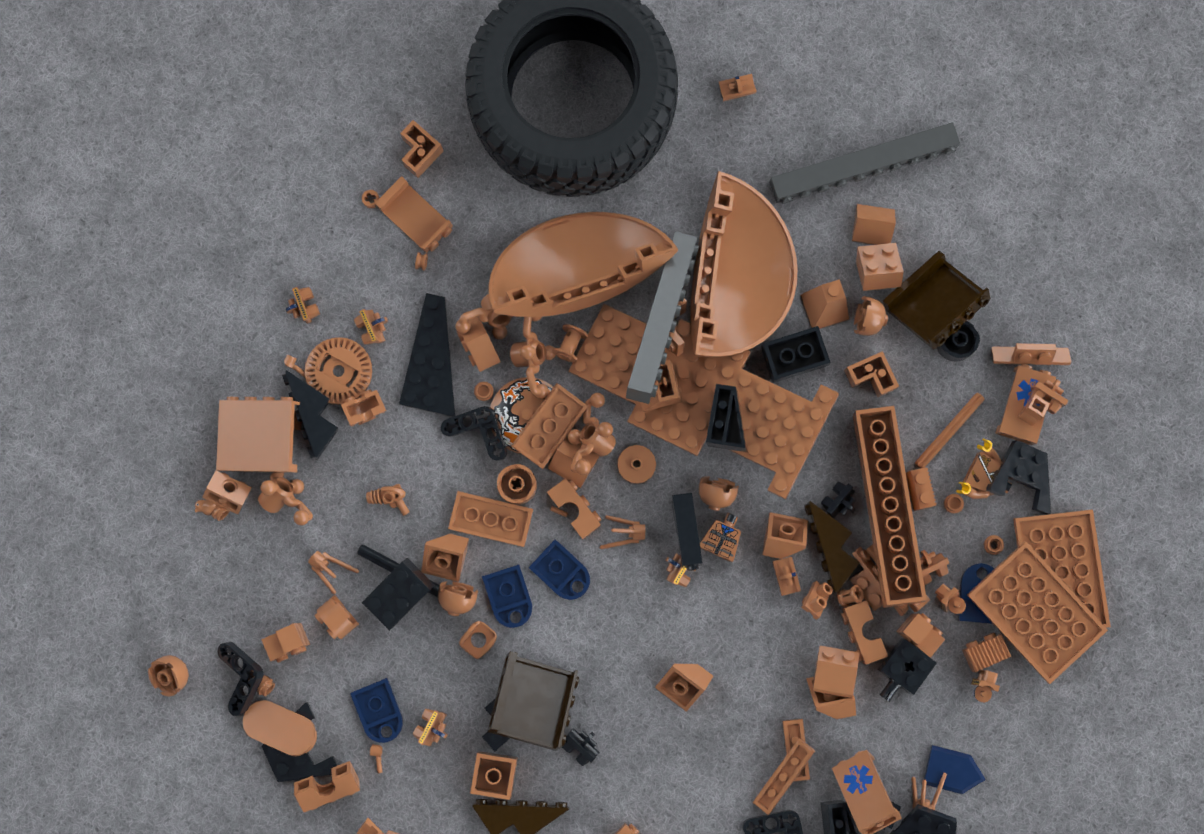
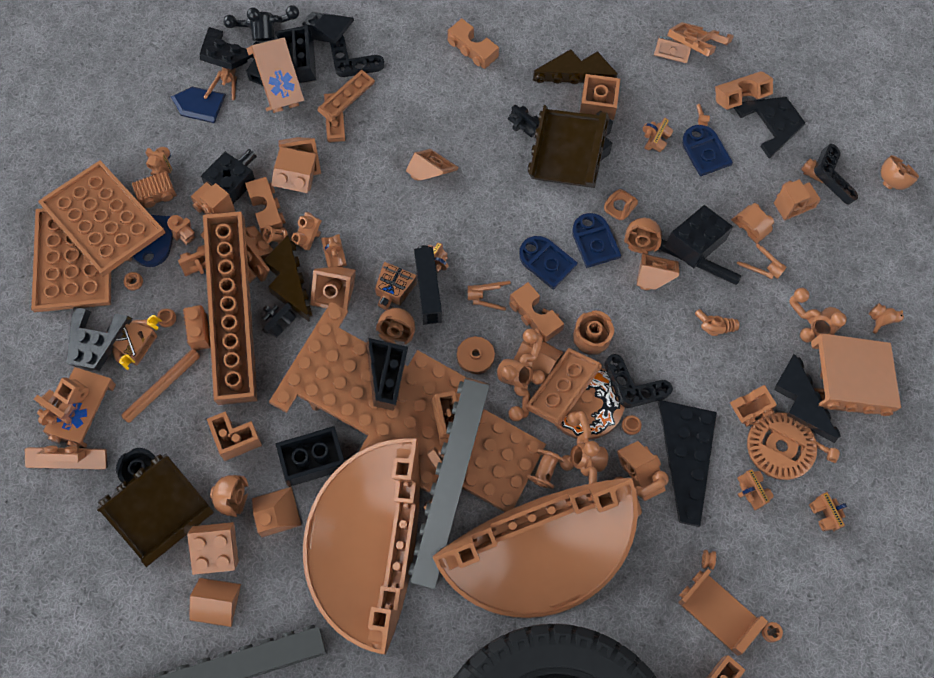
camera: 175 degrees right, 15 degrees down
(230, 500) = (887, 323): nougat brick -> none
(279, 728) = (791, 133): nougat tile -> none
(490, 519) = (621, 304): nougat plate -> none

